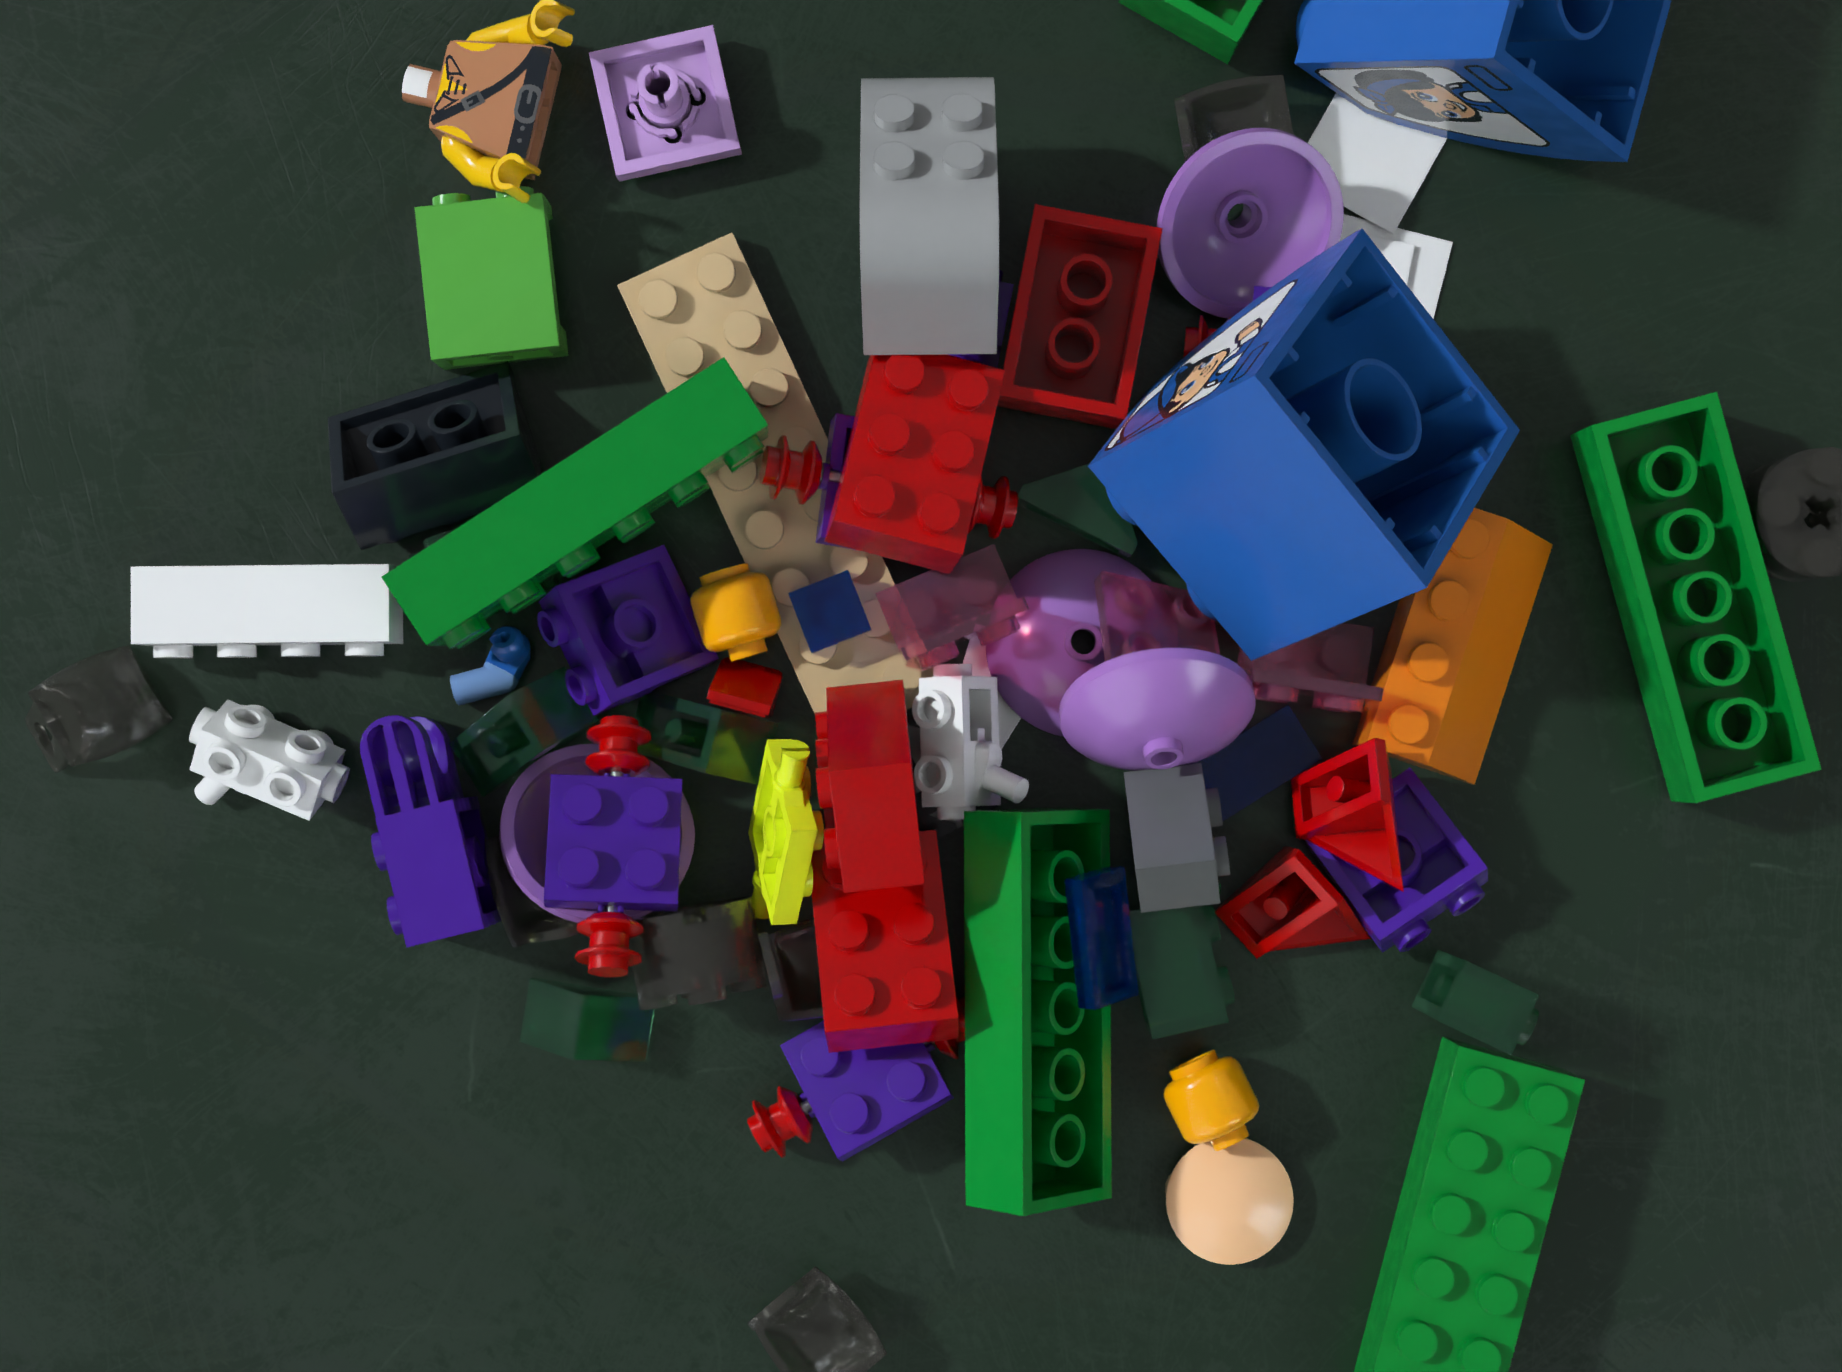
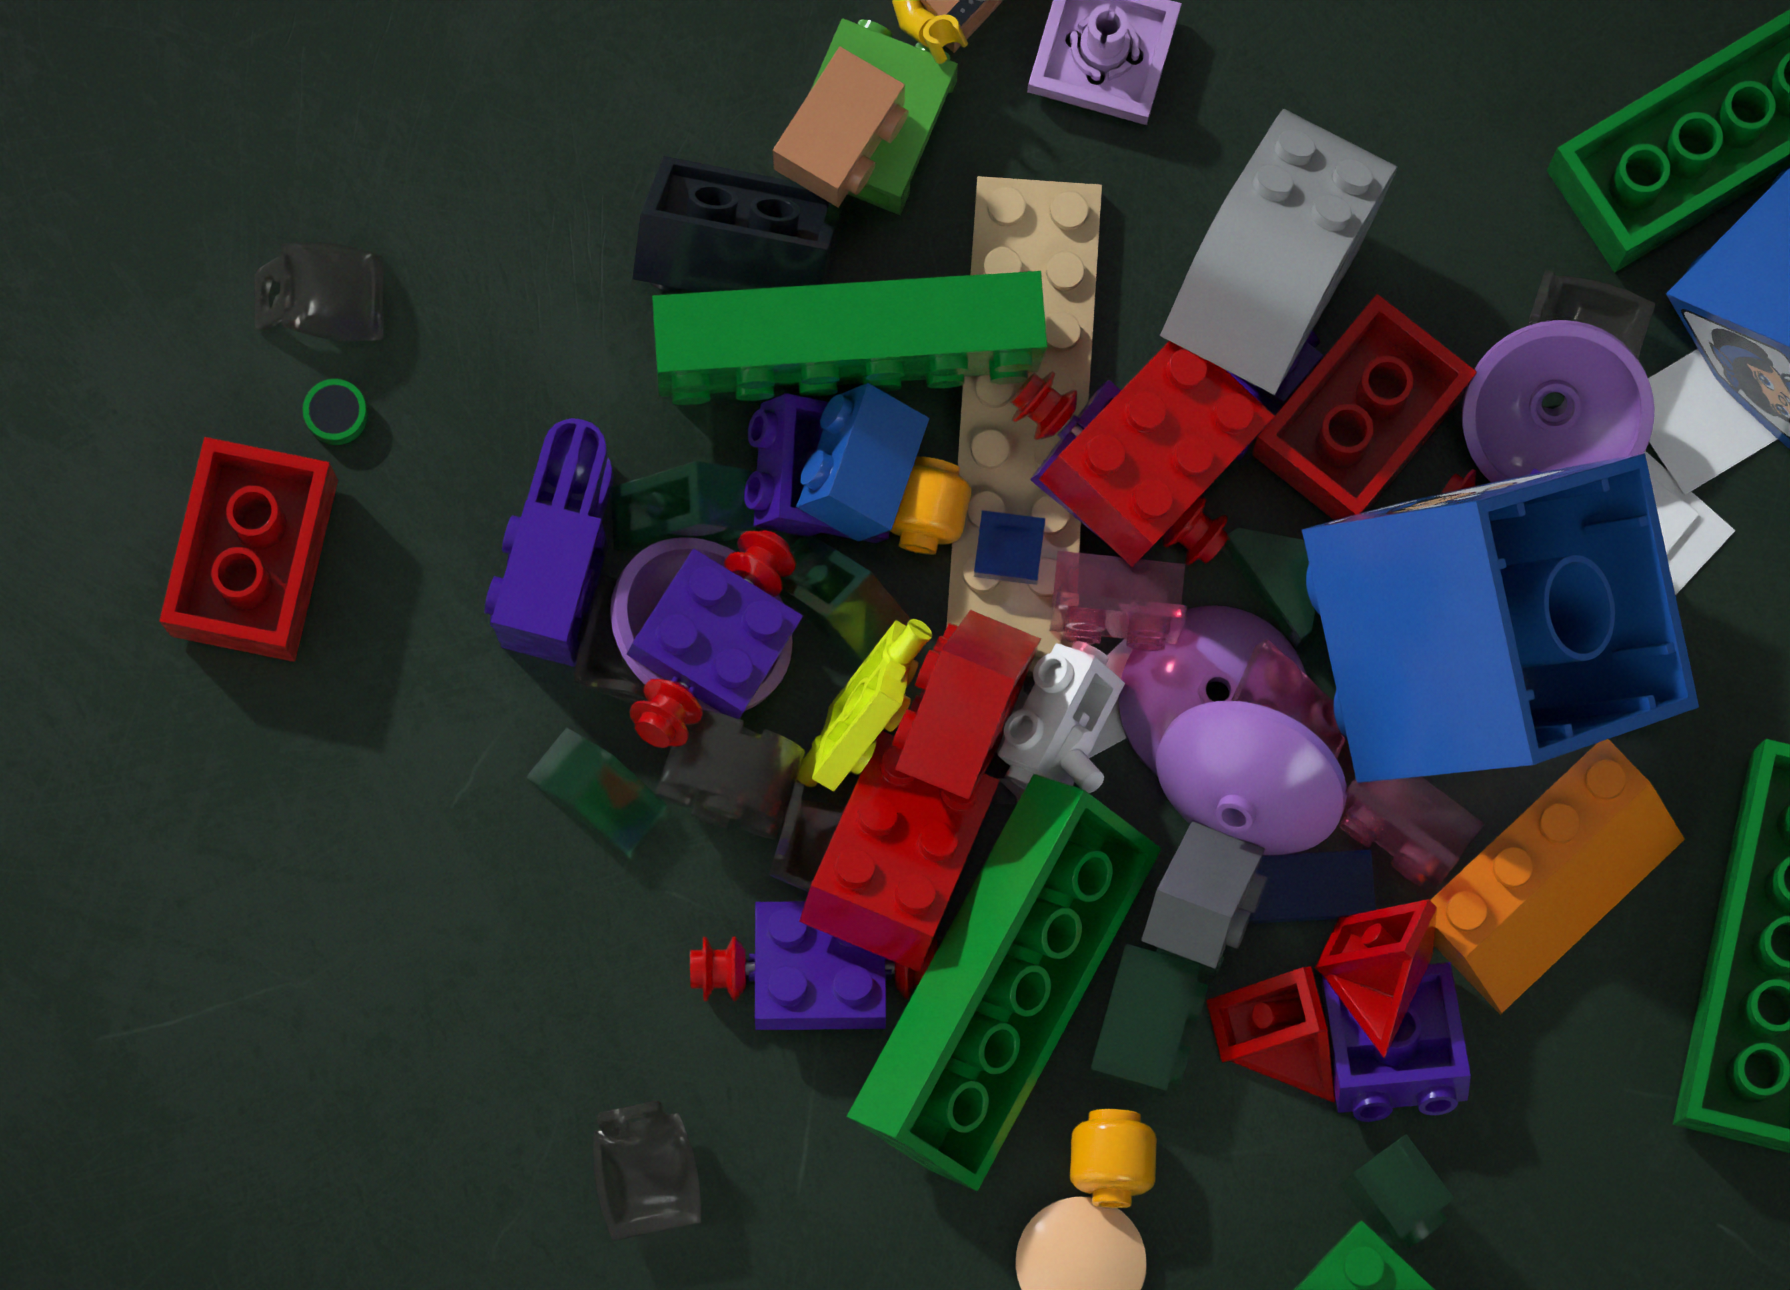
camera: 25 degrees right, 10 degrees down
(158, 983) = (249, 549): none -> red brick
(167, 810) = (335, 411): none -> tile
(264, 606) = (523, 285): white brick -> none
(265, 759) = (442, 404): white brick -> none
(468, 314) = (841, 127): none -> nougat brick
(500, 671) = (699, 443): arm -> none
(657, 610) = (861, 462): none -> blue brick
(745, 687) = (900, 576): red slope -> none
(1101, 937) = (1094, 949): clear blue tile -> none

